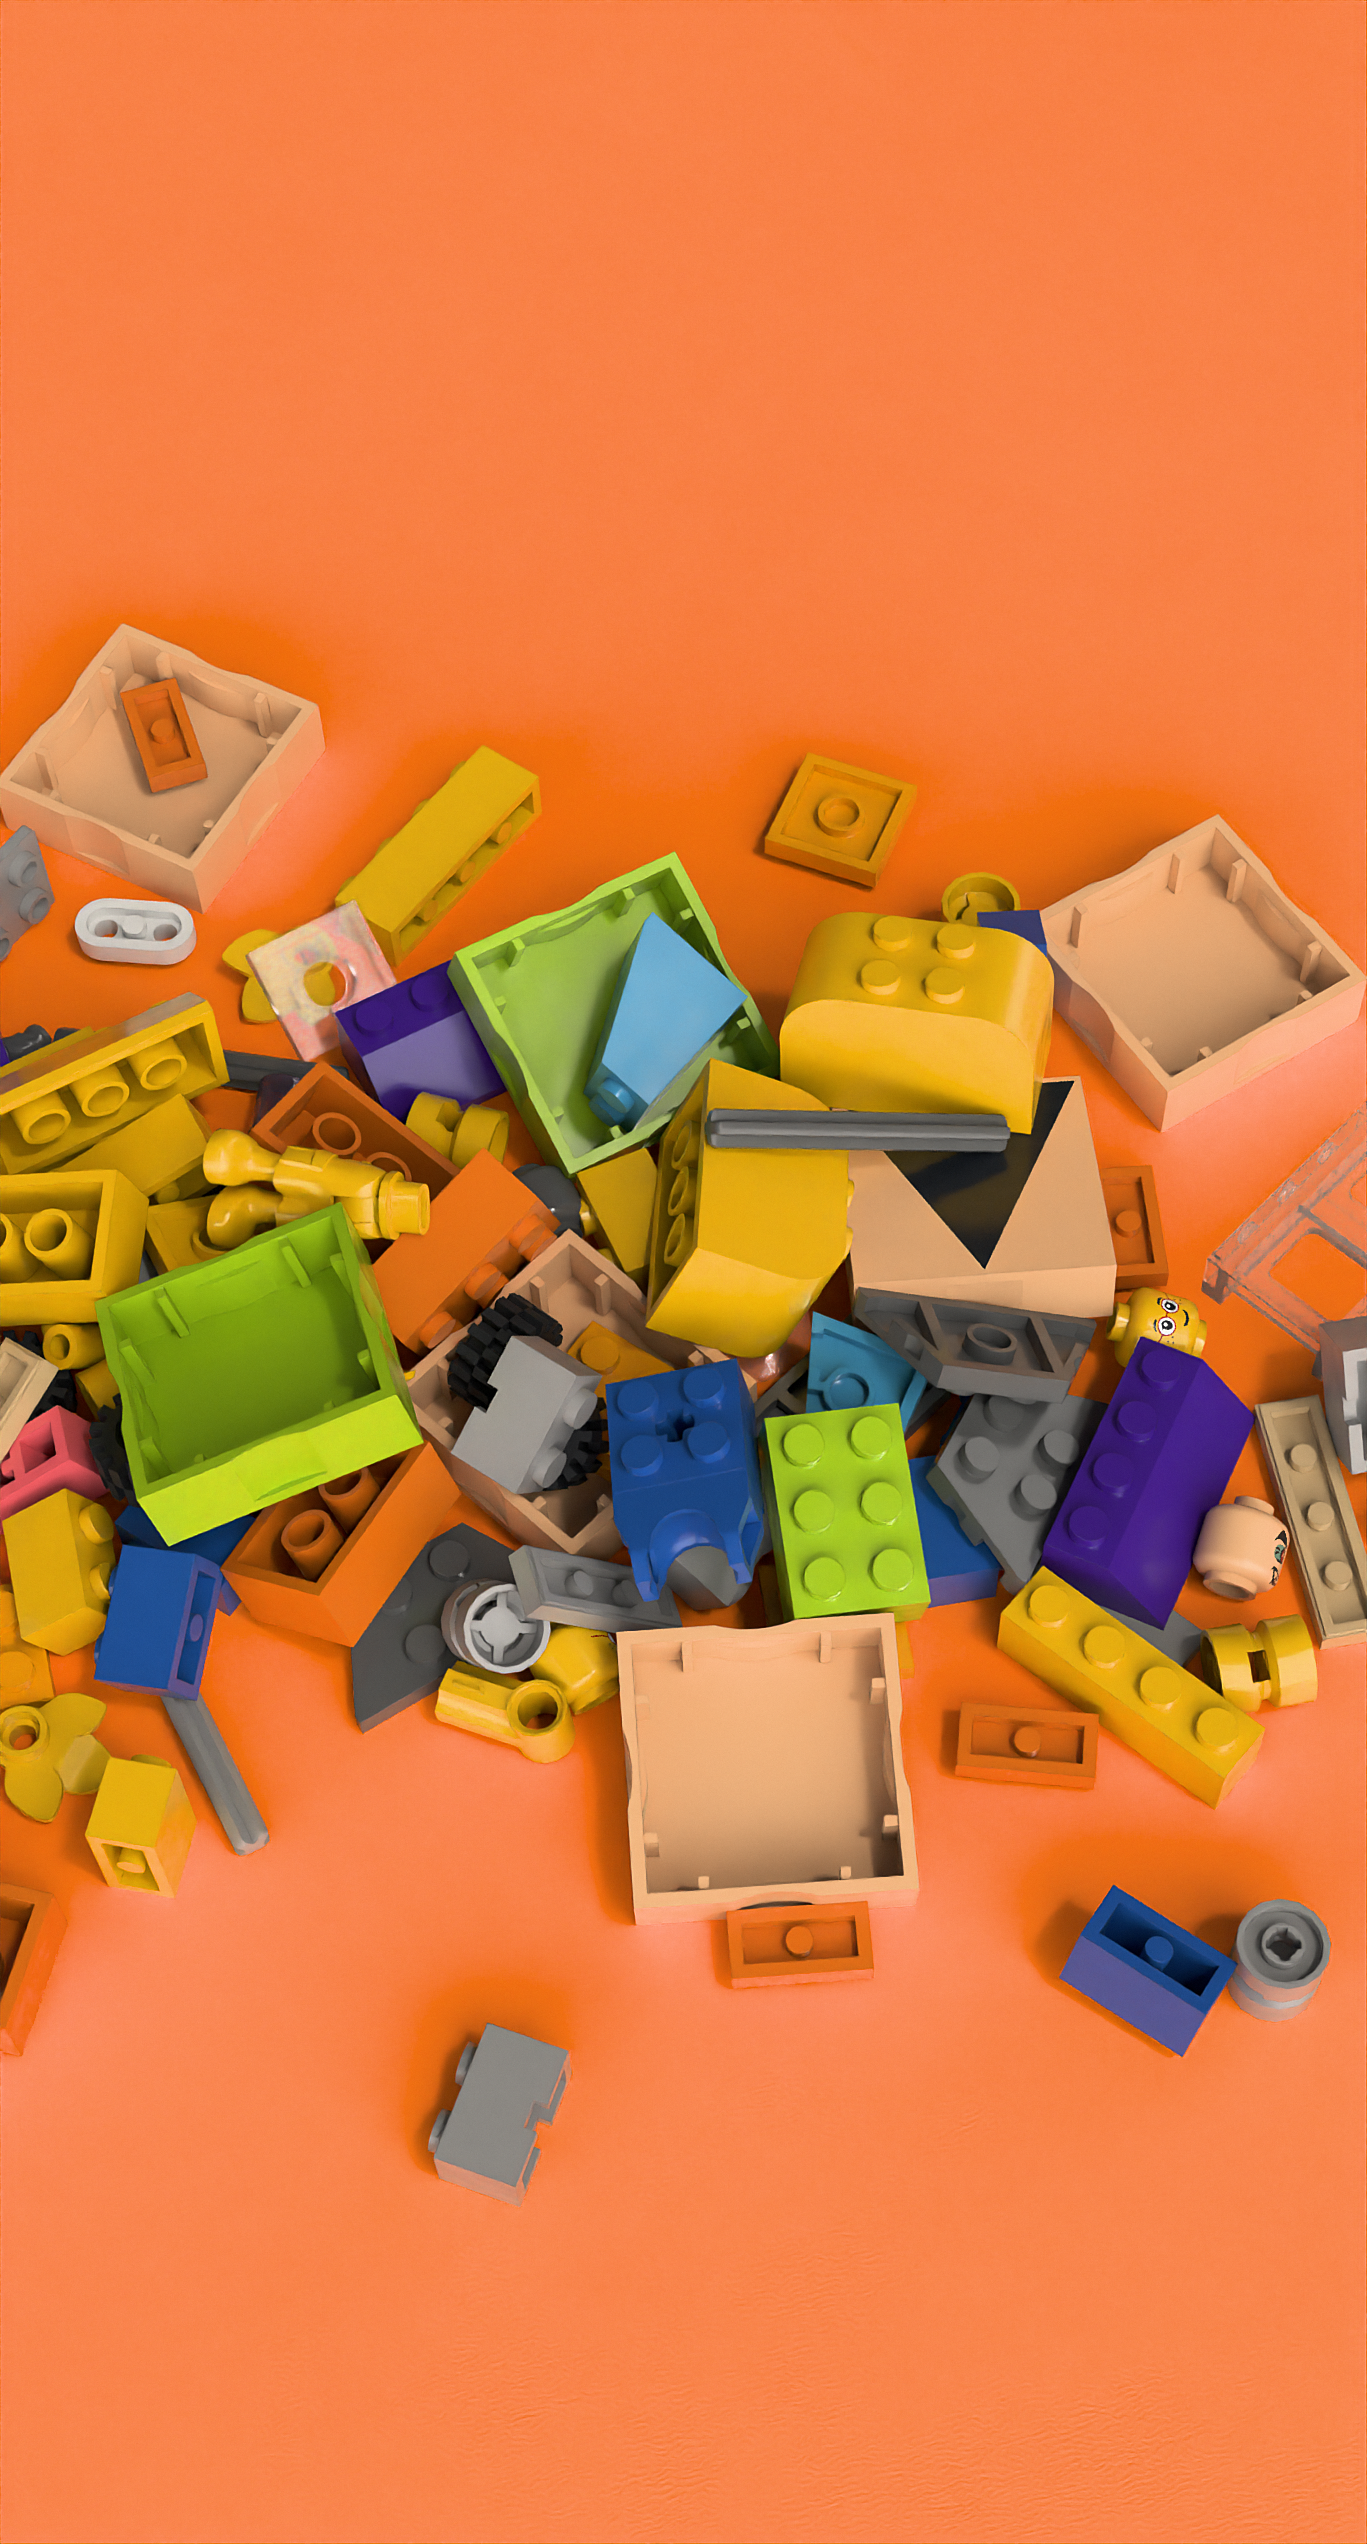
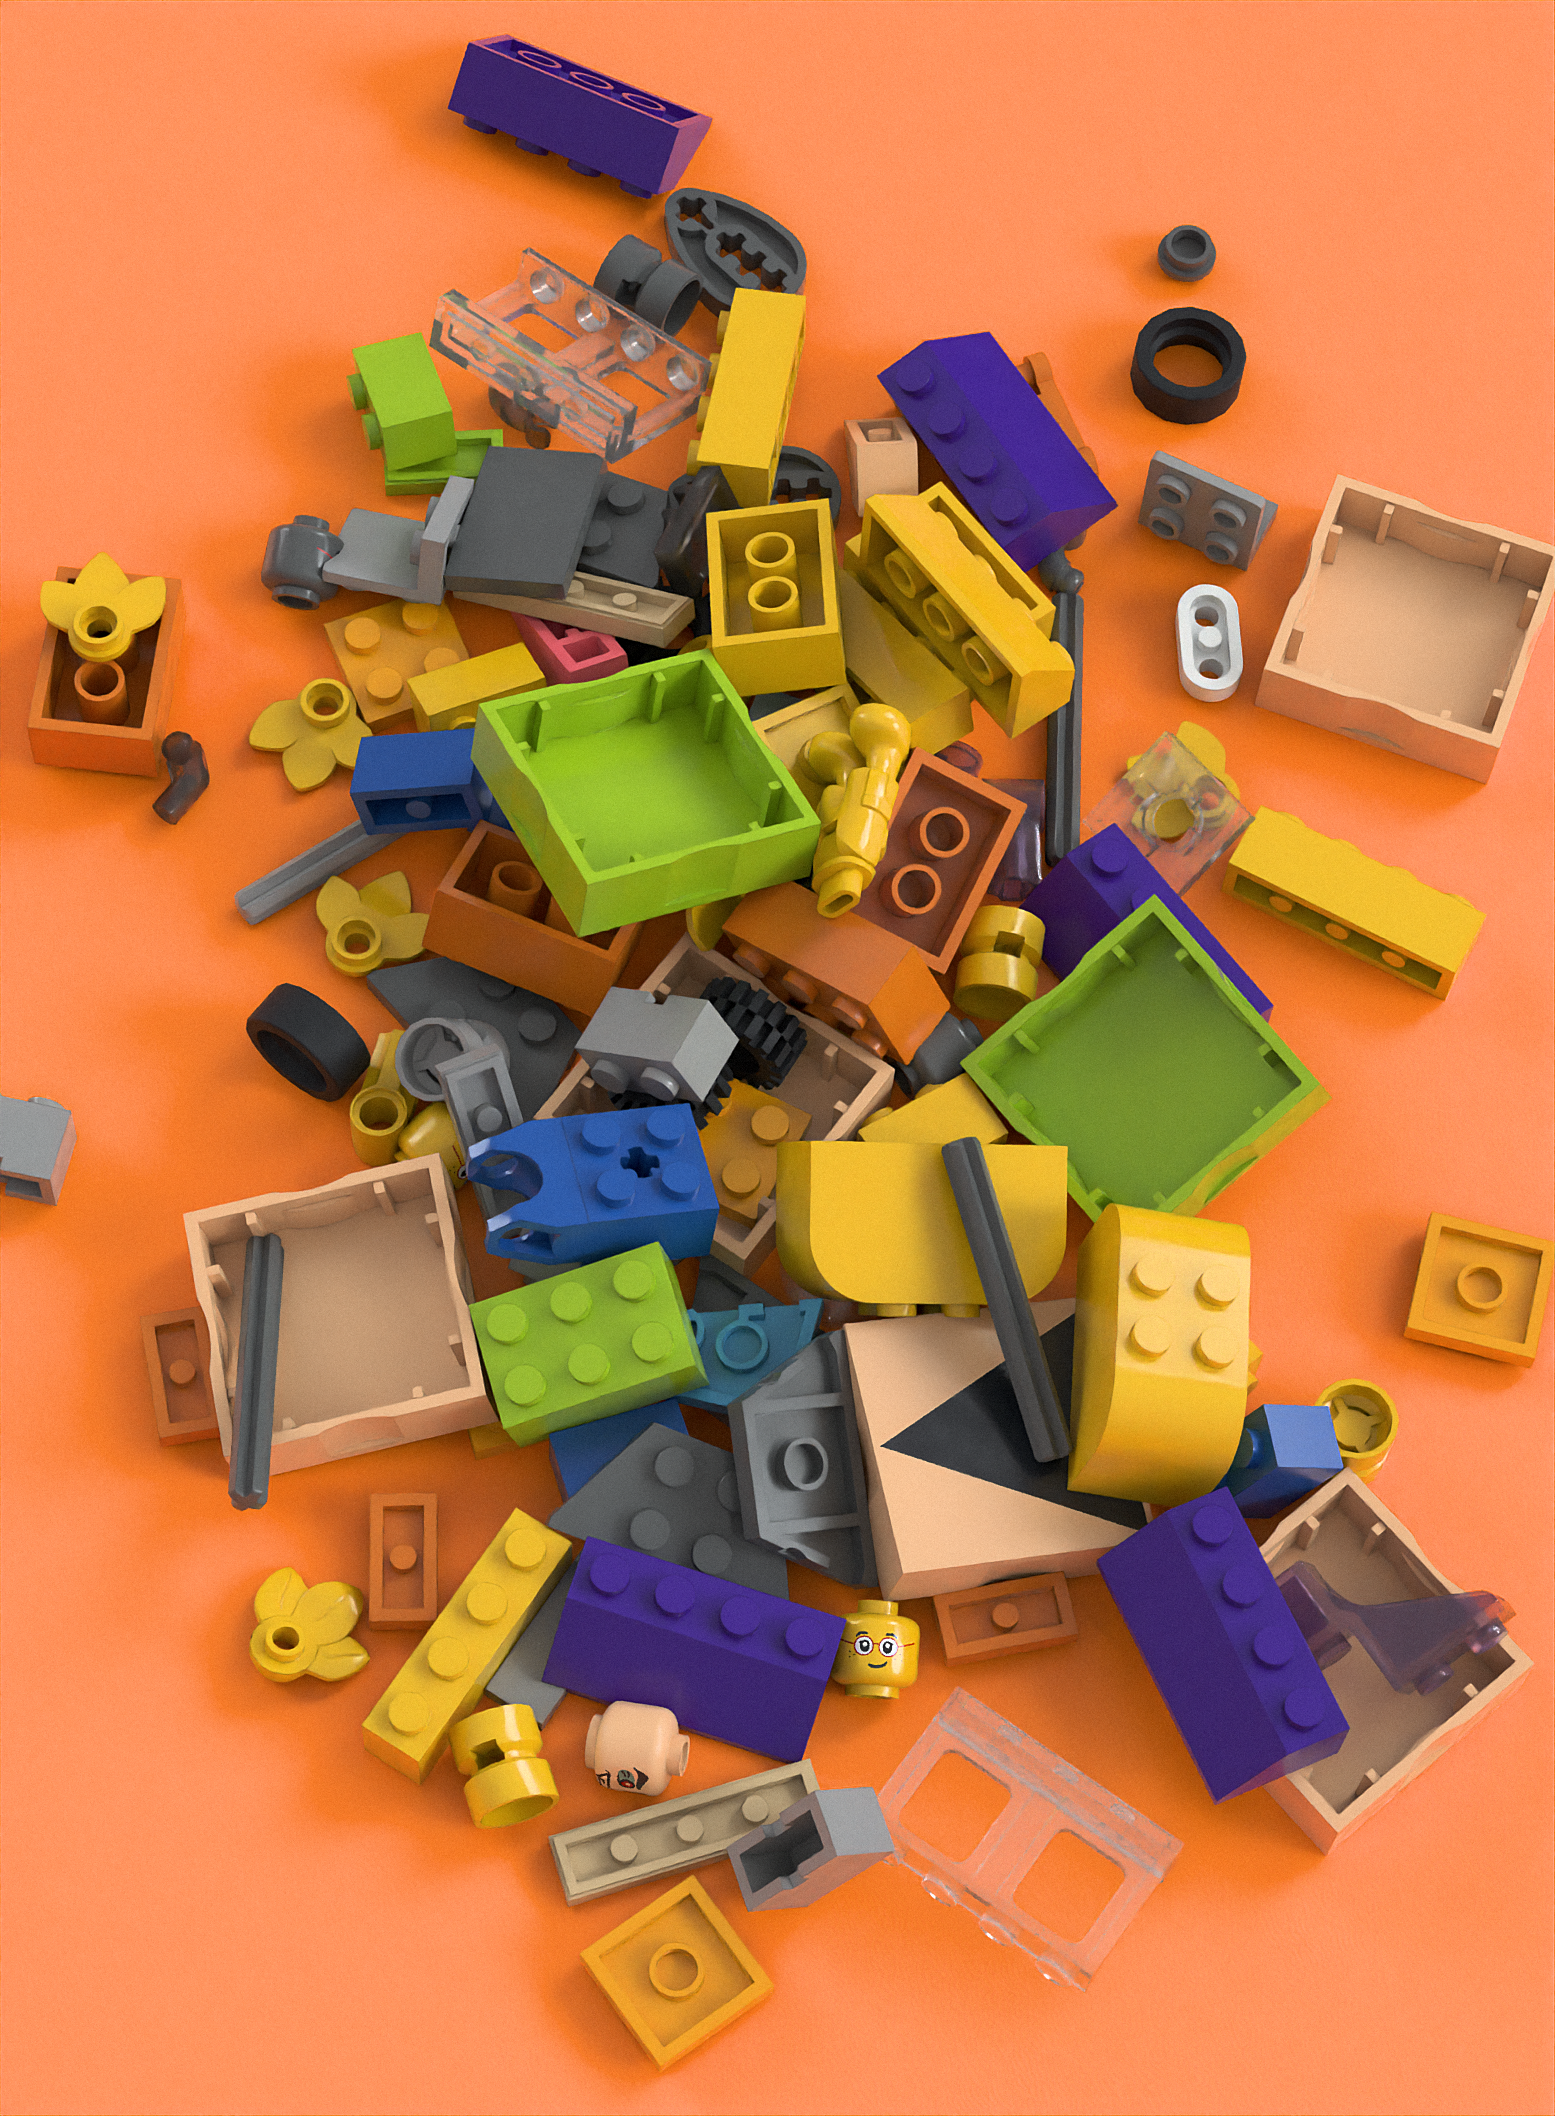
camera: 75 degrees right, 5 degrees up
(82, 1889) = (187, 773): none -> clear smoke arm
(141, 1825) = (232, 805): yellow brick -> none
(163, 735) = (1452, 622): orange plate -> none
(287, 1711) = (374, 917): none -> yellow plate
(441, 1774) = (308, 1042): none -> black tyre
(657, 1024) = (1130, 1106): dark azure slope -> none
(829, 1845) = (256, 1373): none -> dark grey axle
(1085, 1839) = (312, 1621): none -> yellow plate
(1147, 1970) = (170, 1675): blue brick -> none
(1190, 897) = (1405, 1639): none -> clear purple arch
(1200, 1024) = (1223, 1647): none -> dark purple slope
(1279, 1959) = (192, 1795): light grey wheel -> none

